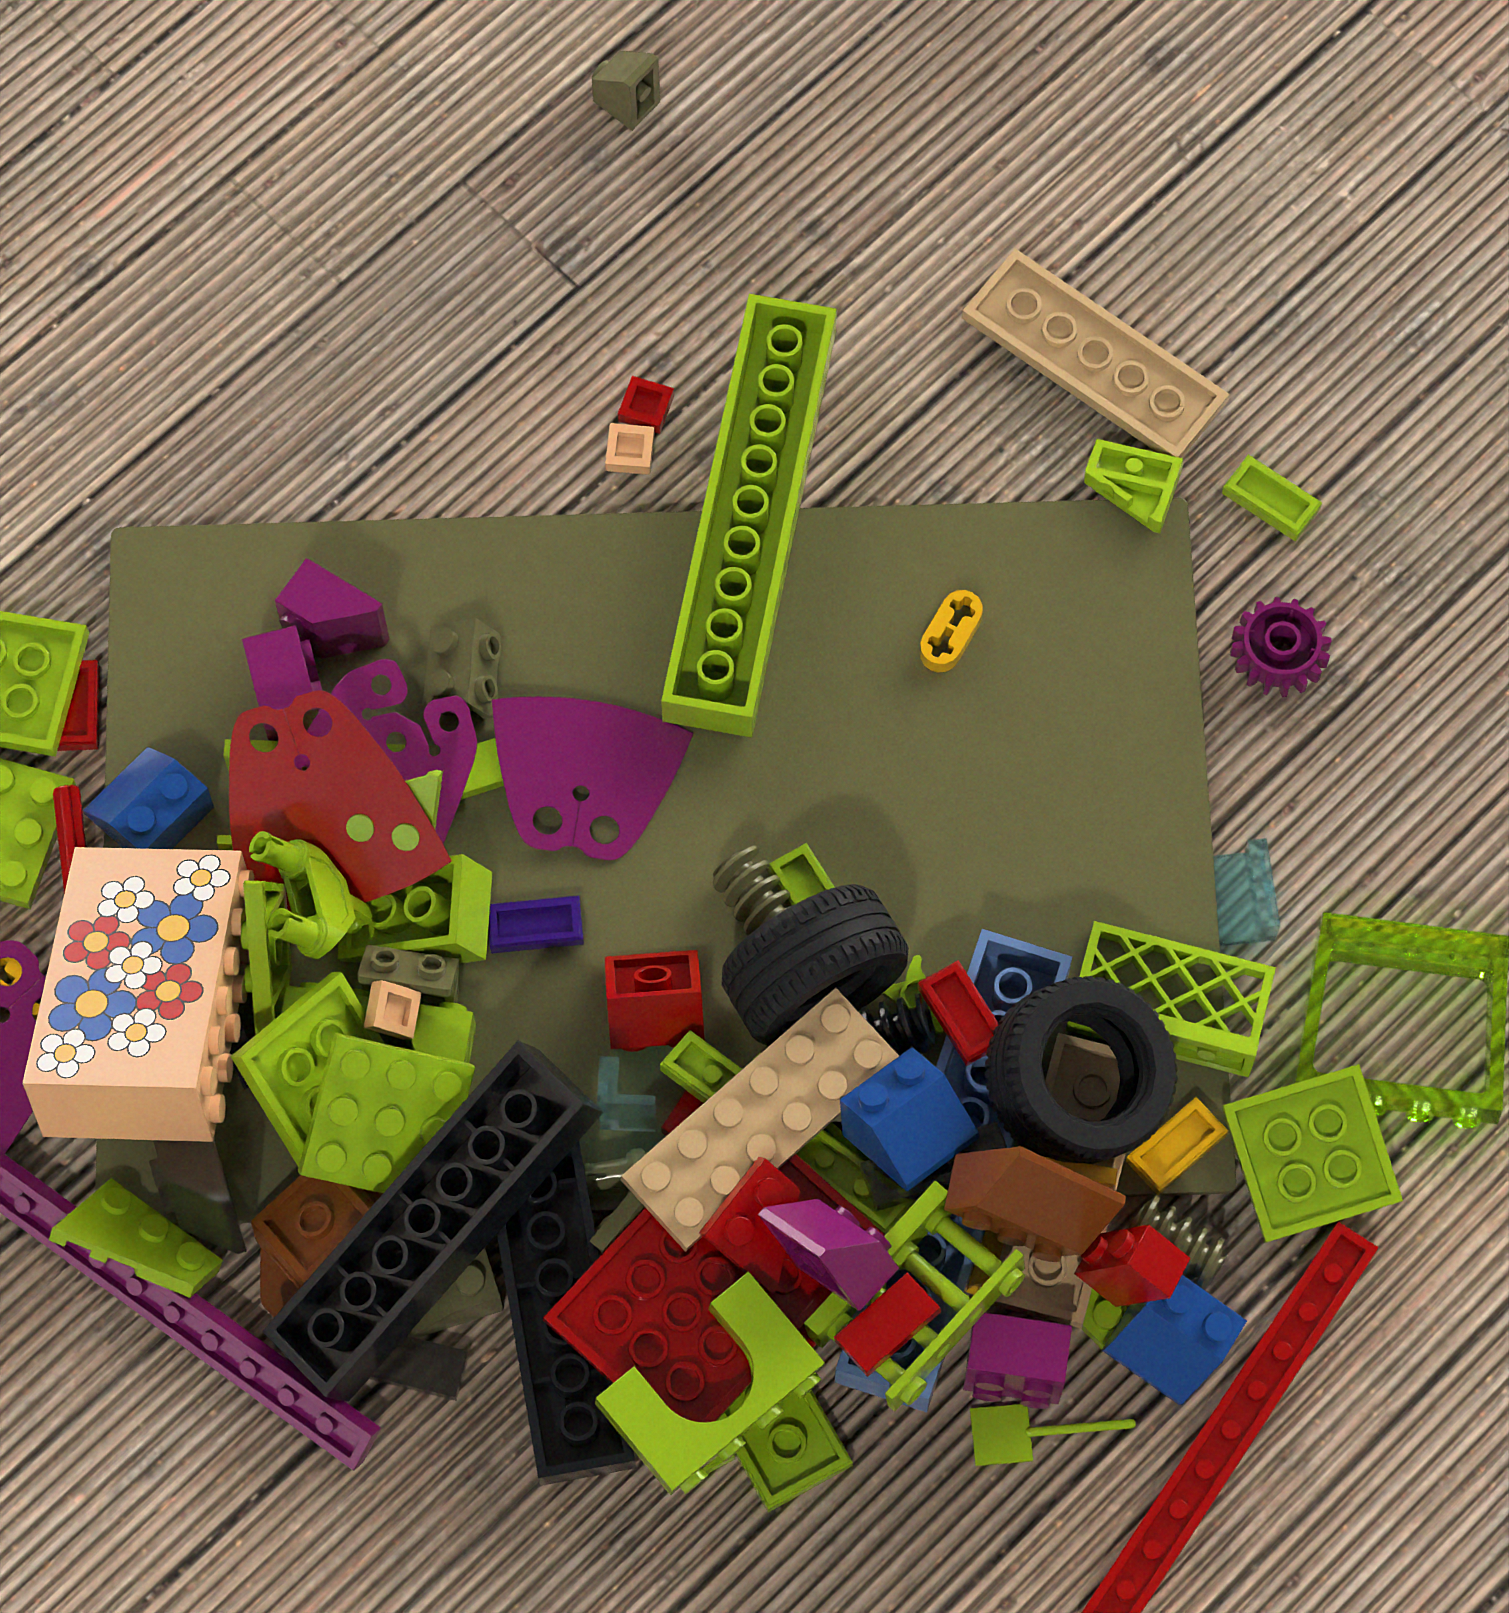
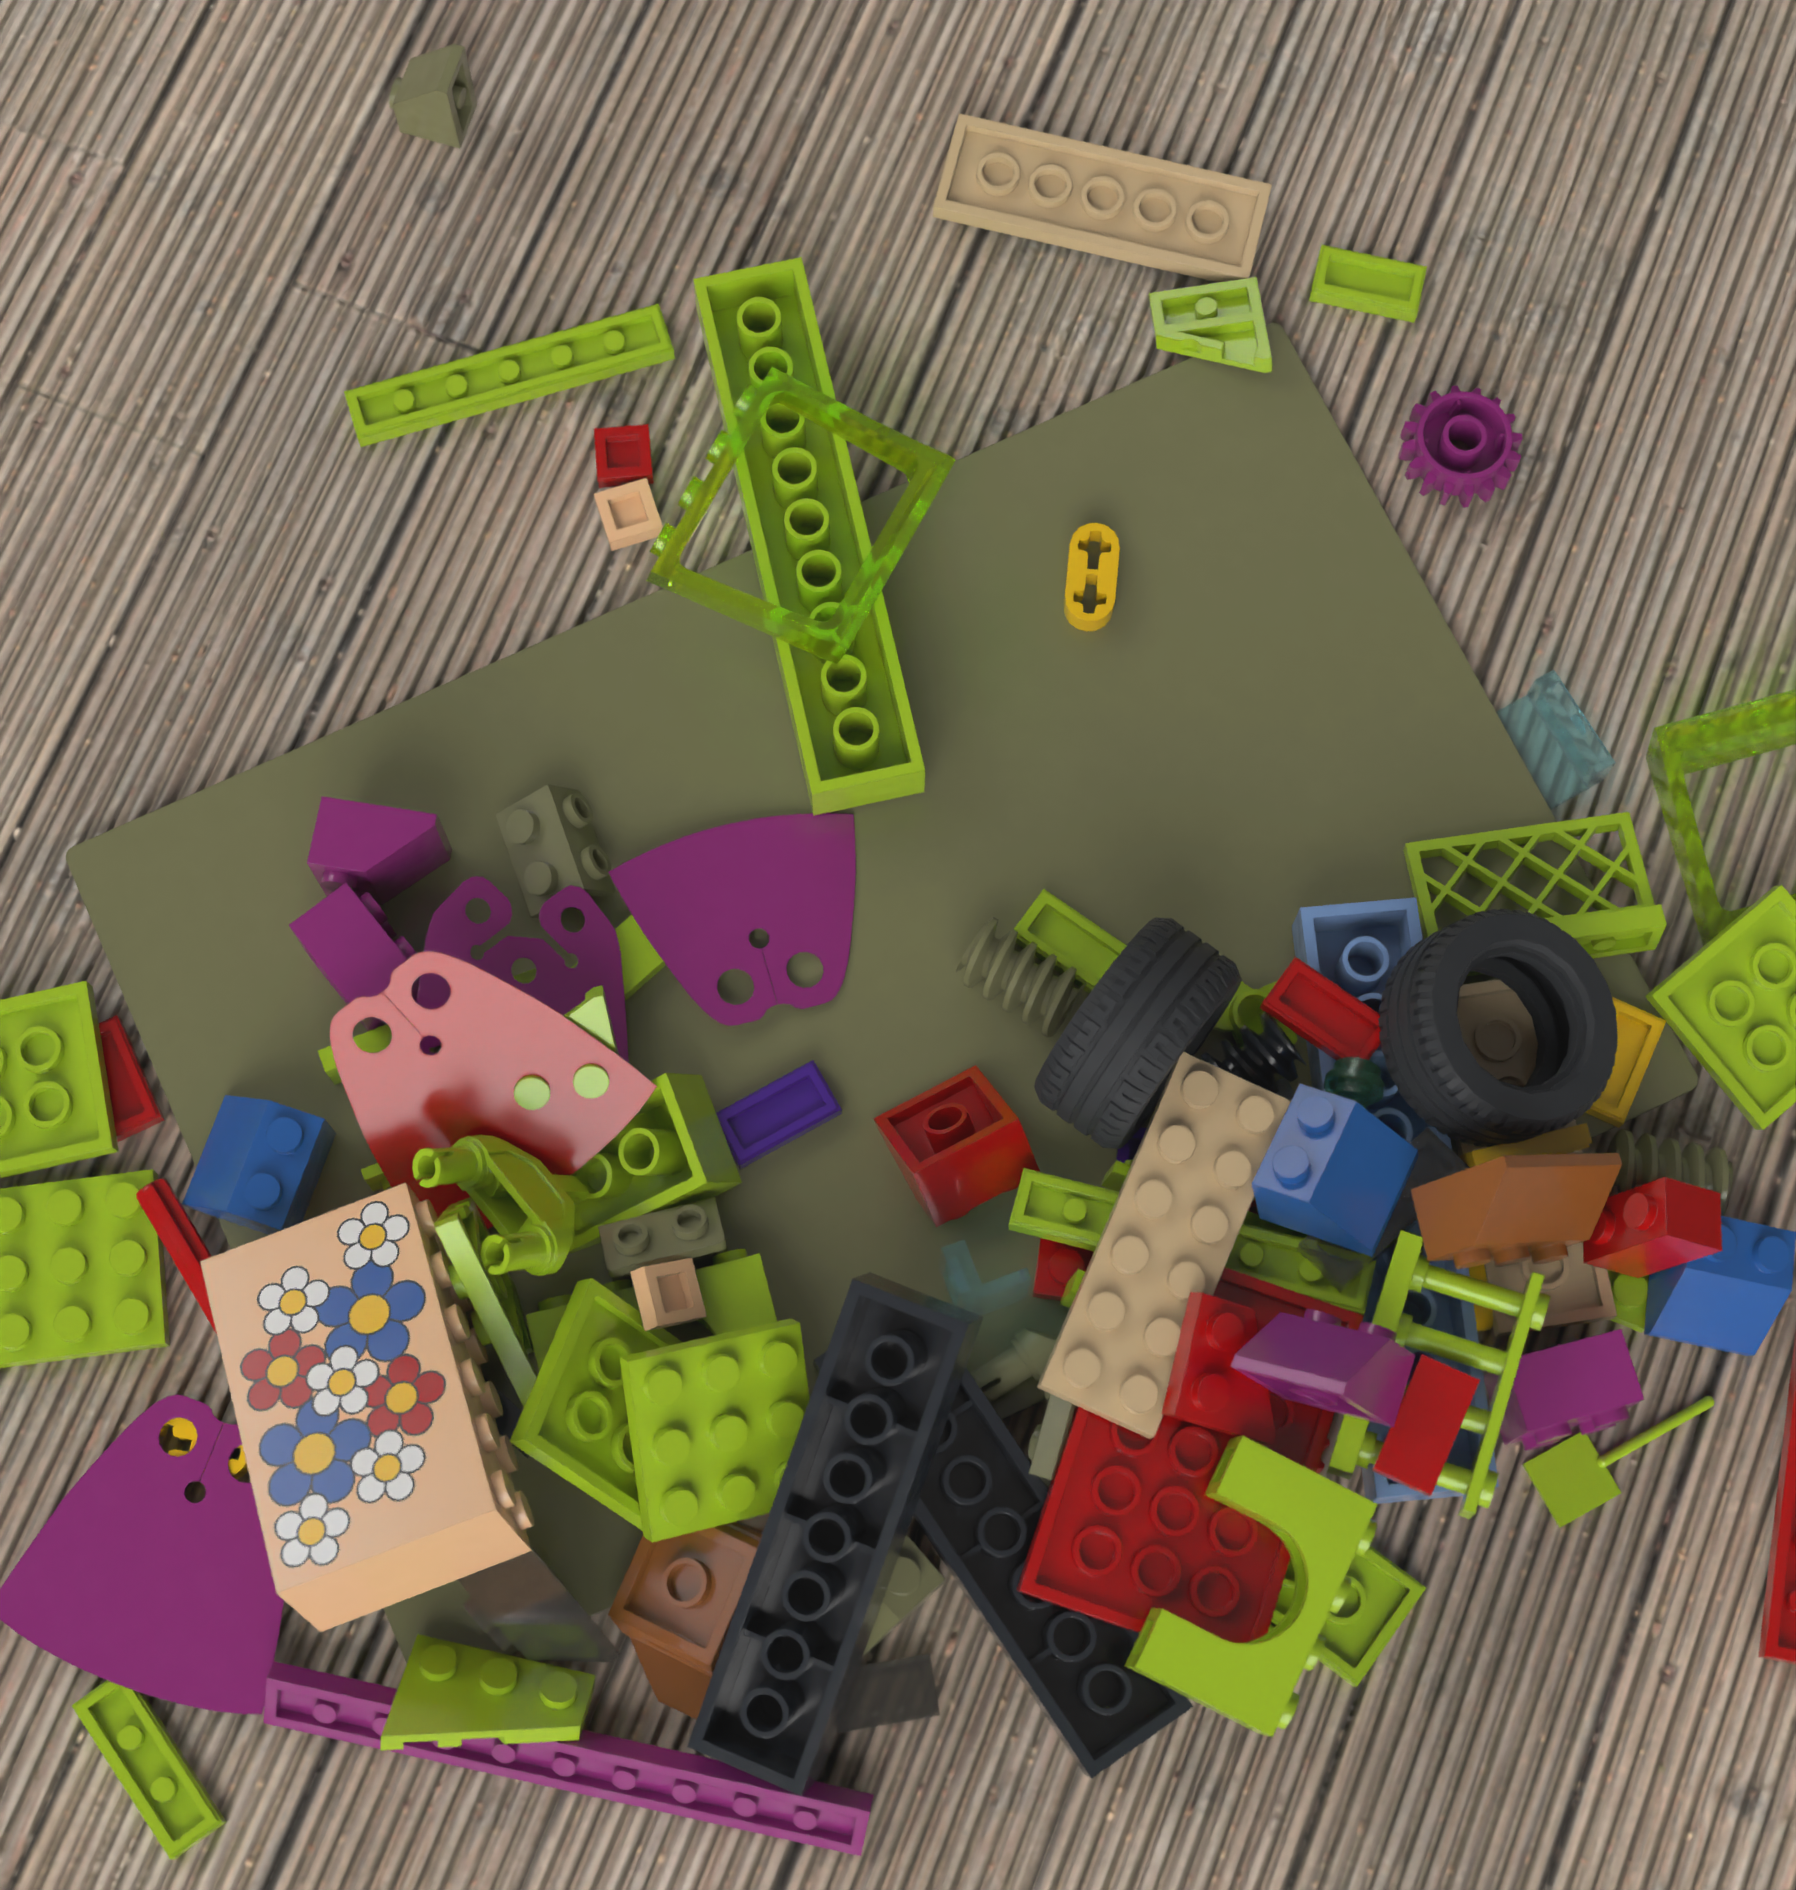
camera: 25 degrees left, 5 degrees up
(591, 312) = (509, 375): none -> lime tile
(731, 591) = (827, 639): none -> clear neon green windscreen
(958, 1066) = (1355, 1080): none -> clear green plate

